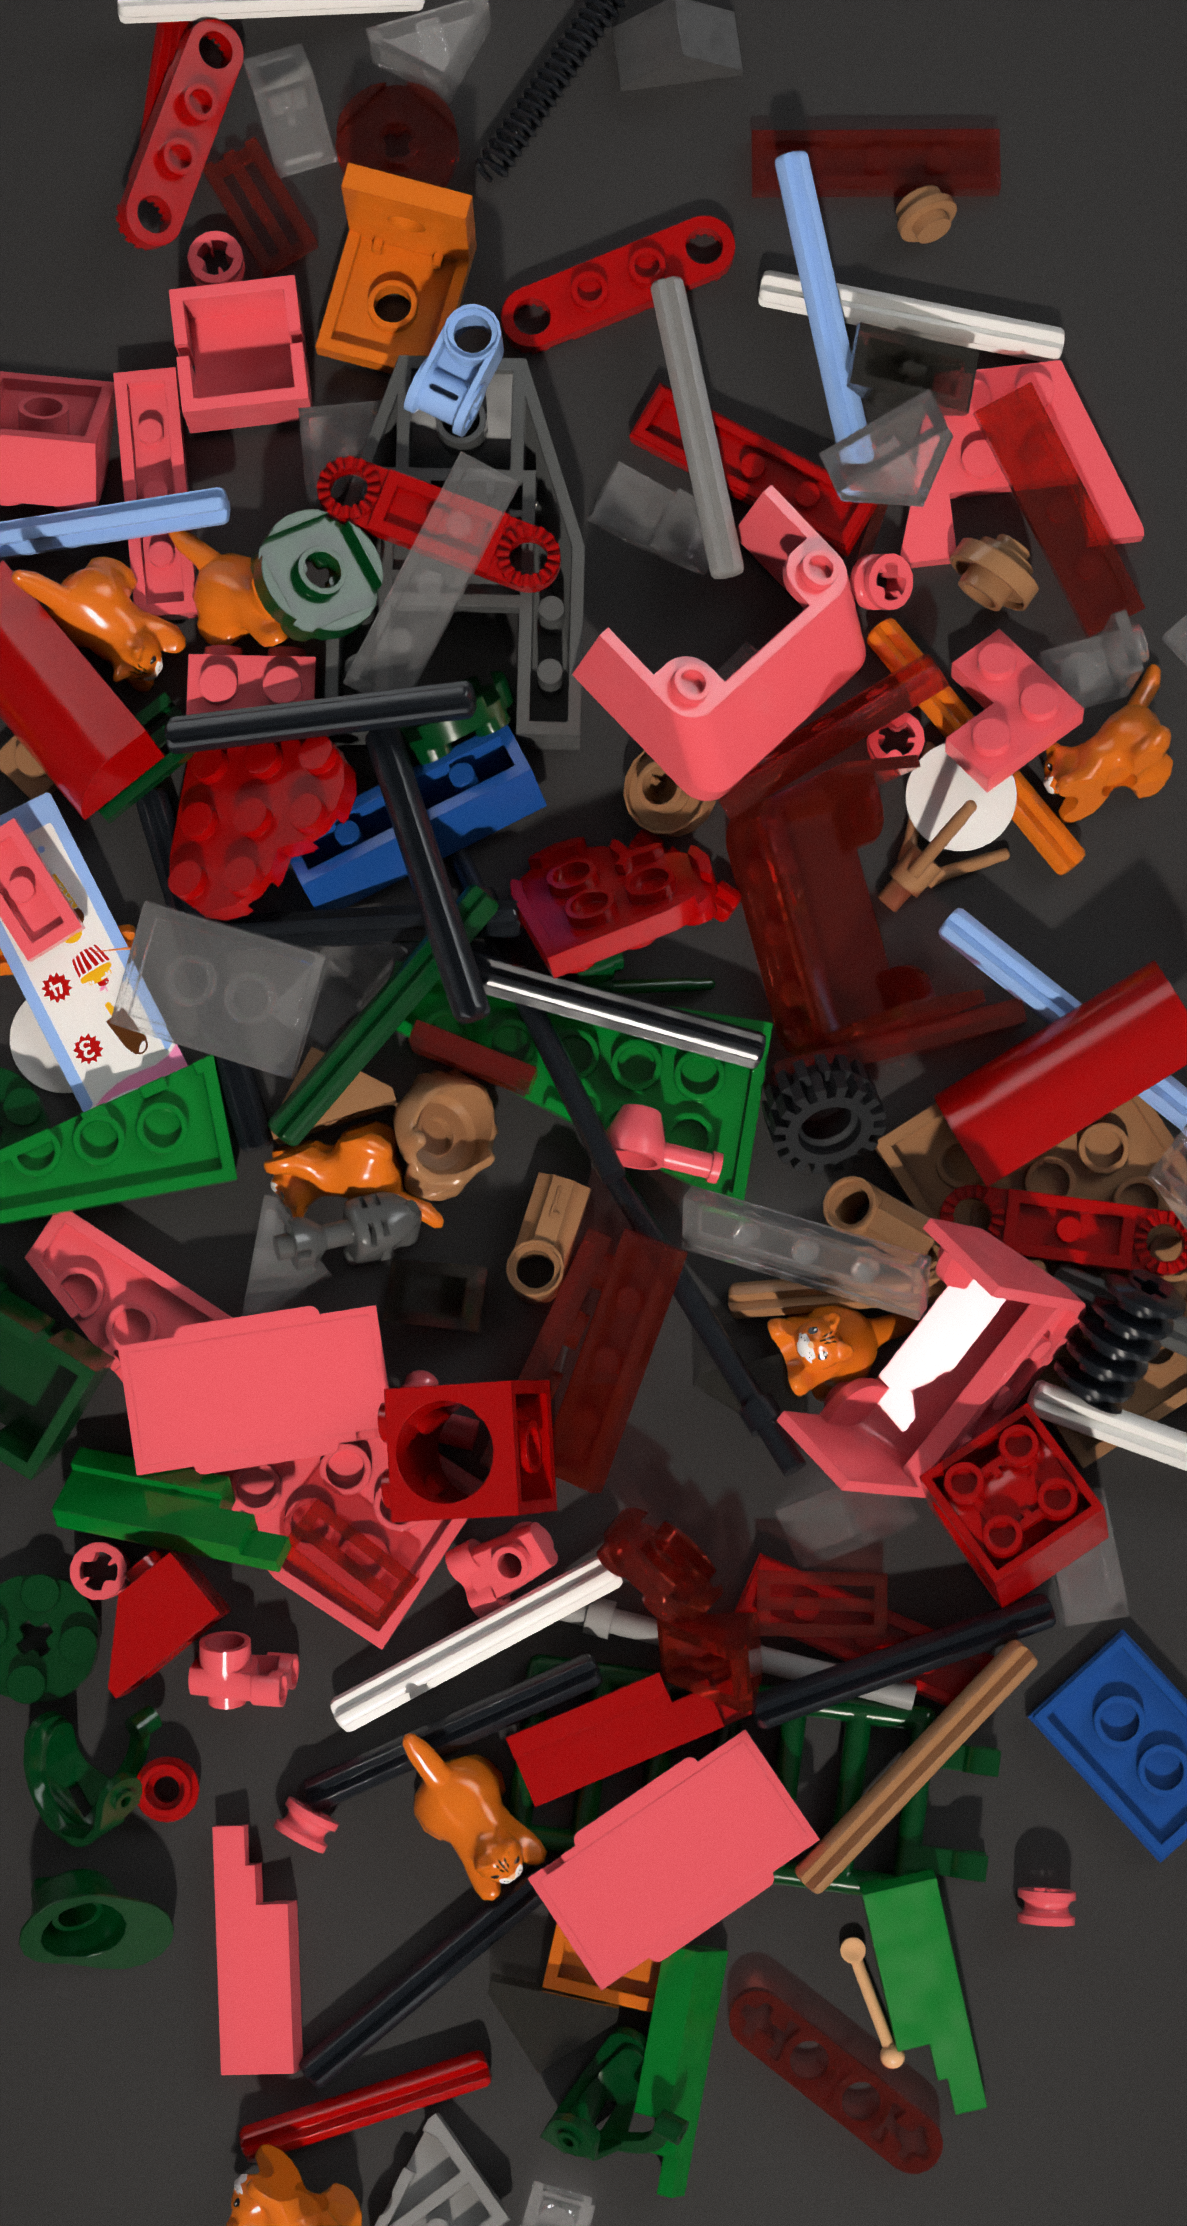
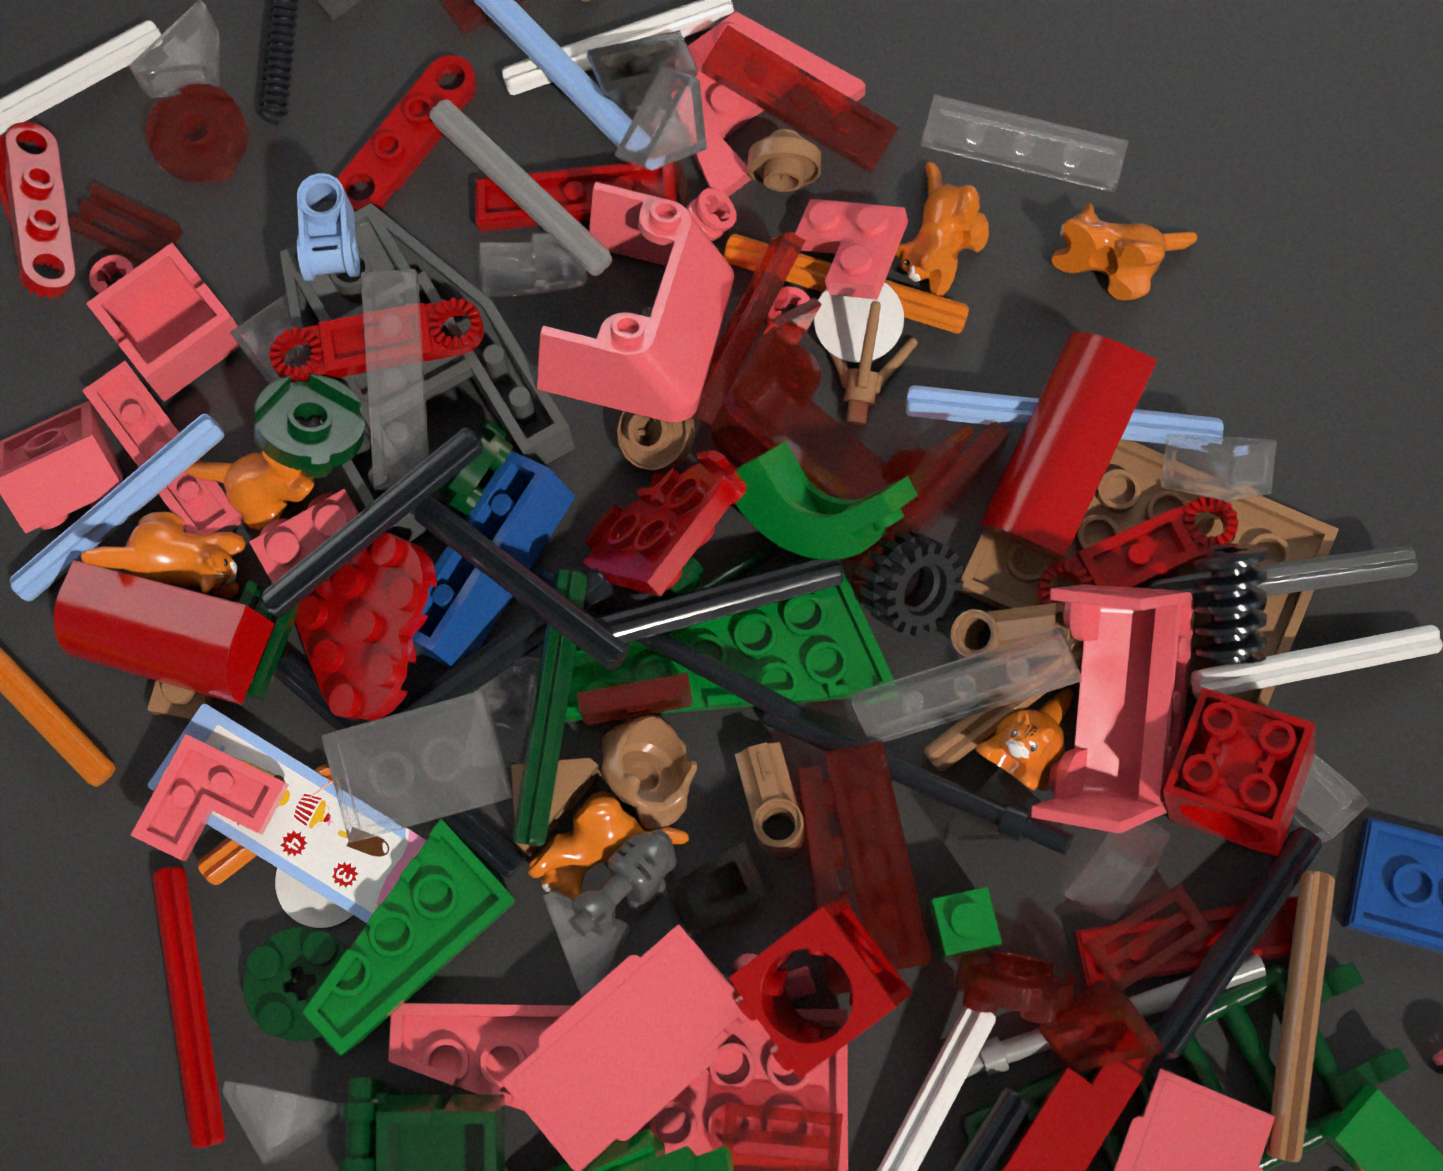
camera: 30 degrees left, 10 degrees down
(290, 110) = (110, 155): clear slope -> none
(400, 242) = (239, 185): orange bracket -> none
(492, 1570) = (892, 1074): coral plate -> none
(641, 1145) = (798, 682): coral bar -> none
(653, 1477) = (963, 924): none -> green brick
(761, 981) = (808, 521): none -> green arch
(1099, 666) = (902, 169): clear bracket -> none

